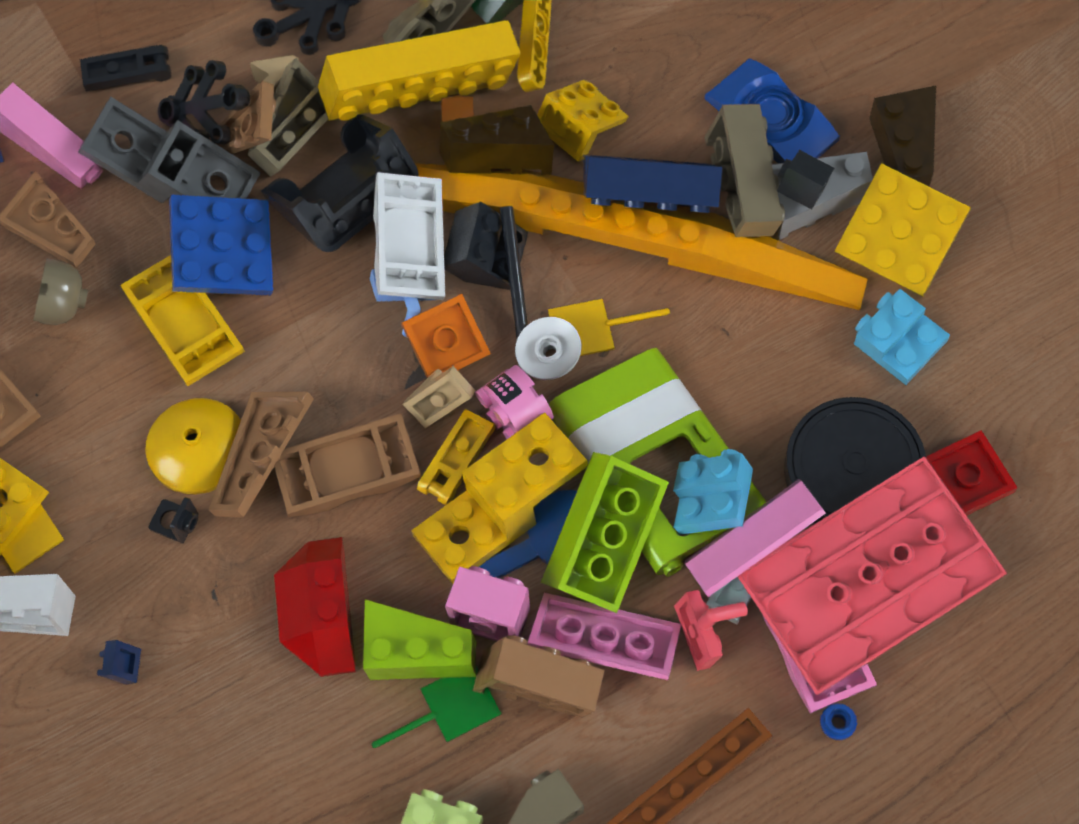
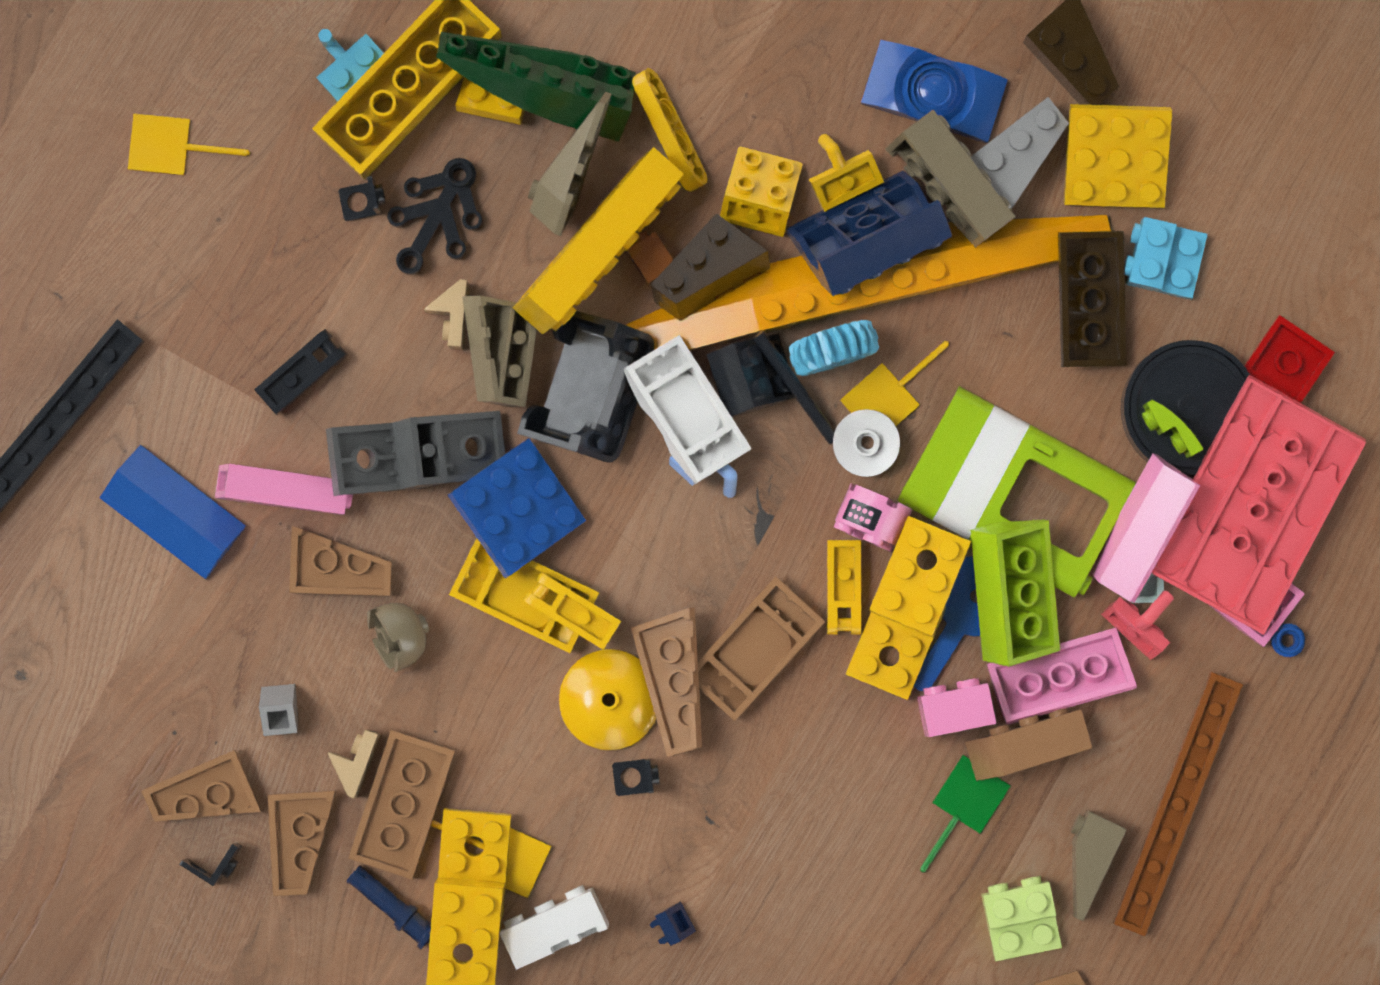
camera: 30 degrees left, 20 degrees up
(210, 348) = (573, 611): none -> yellow plate
(231, 98) = (379, 392): black plant -> none
(253, 123) = (470, 379): medium nougat wing -> none
(316, 608) = (805, 783): red wedge -> none
(414, 646) = (910, 775): lime wedge -> none
(438, 396) = (799, 542): tan slope -> none
(446, 336) = (772, 484): orange plate -> none
(565, 252) = (833, 347): none -> medium azure gear
(657, 140) = (846, 177): none -> yellow plate
(712, 492) = (1087, 506): medium azure plate -> none
(804, 178) = (1015, 167): black brick -> none
(815, 332) = (1092, 298): none -> dark brown slope
(827, 457) = (1162, 419): none -> lime slope

